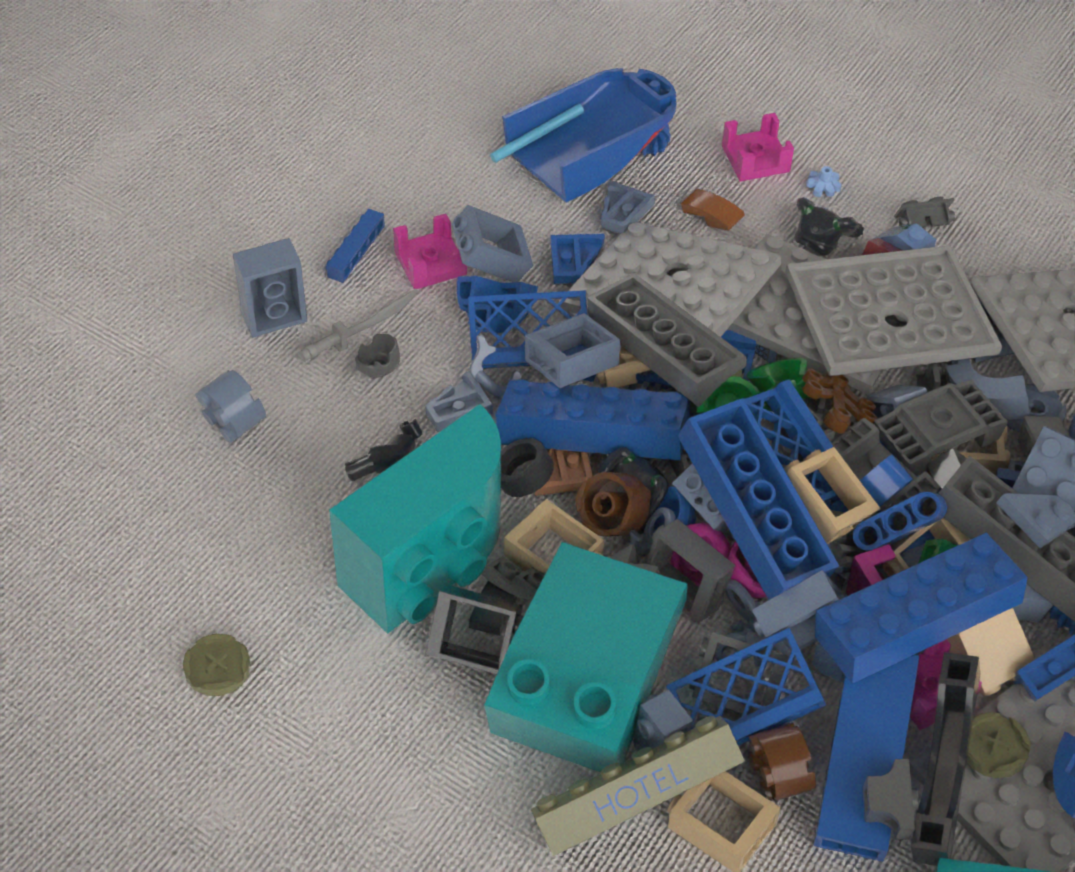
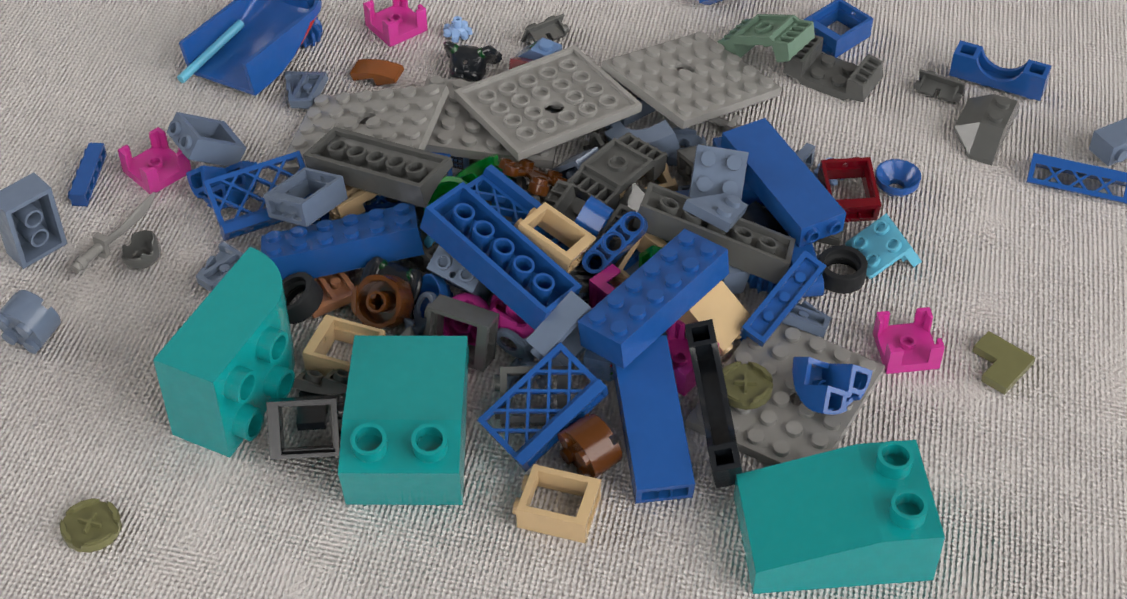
camera: 20 degrees left, 5 degrees down
(384, 456) = (174, 321): black arm -> none
(480, 376) = (230, 237): sand blue helmet -> none
(573, 255) = (276, 133): blue wing -> none
(637, 784) = (482, 497): brick -> none
(658, 719) = (486, 453): sand blue brick -> none
(892, 800) = (685, 443): dark grey brick -> none

